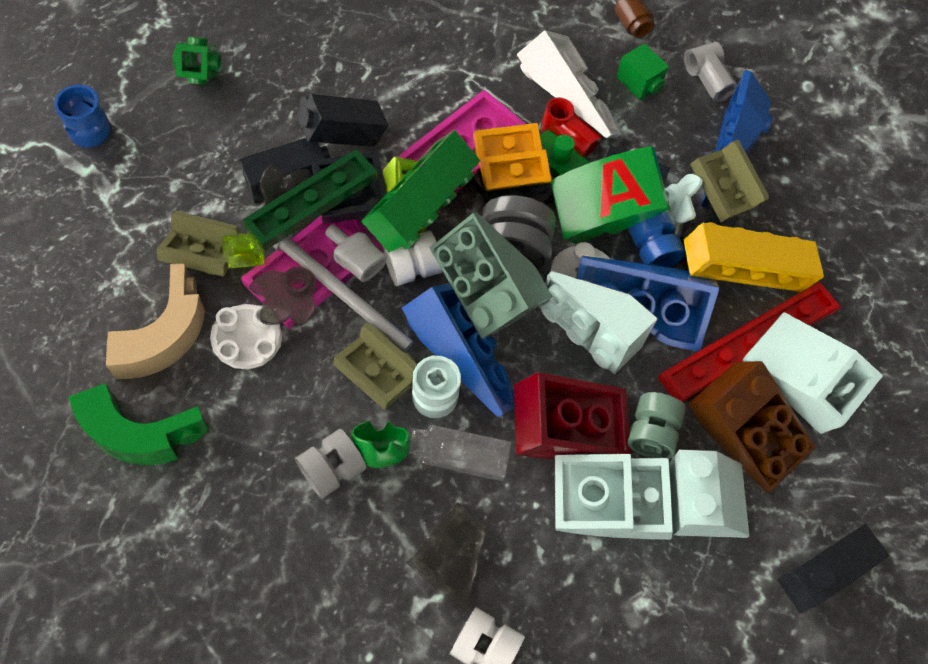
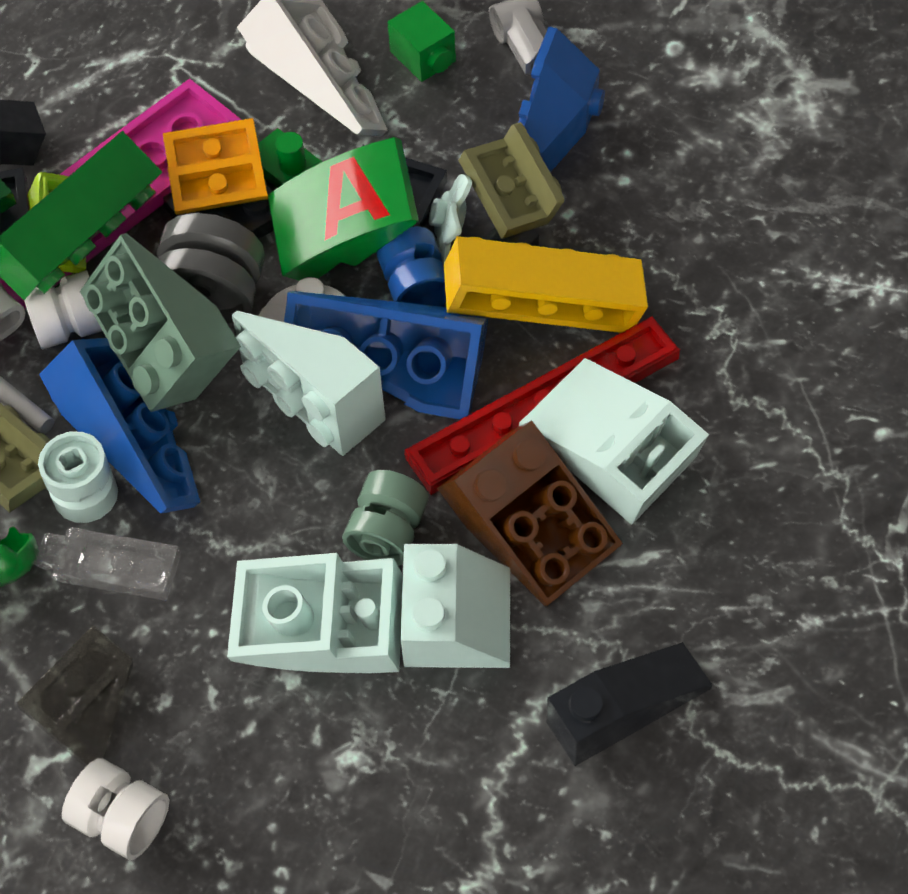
camera: 10 degrees right, 5 degrees down
(561, 120) = (296, 113): red piece -> none
(569, 417) = (264, 509): dark red slope -> none

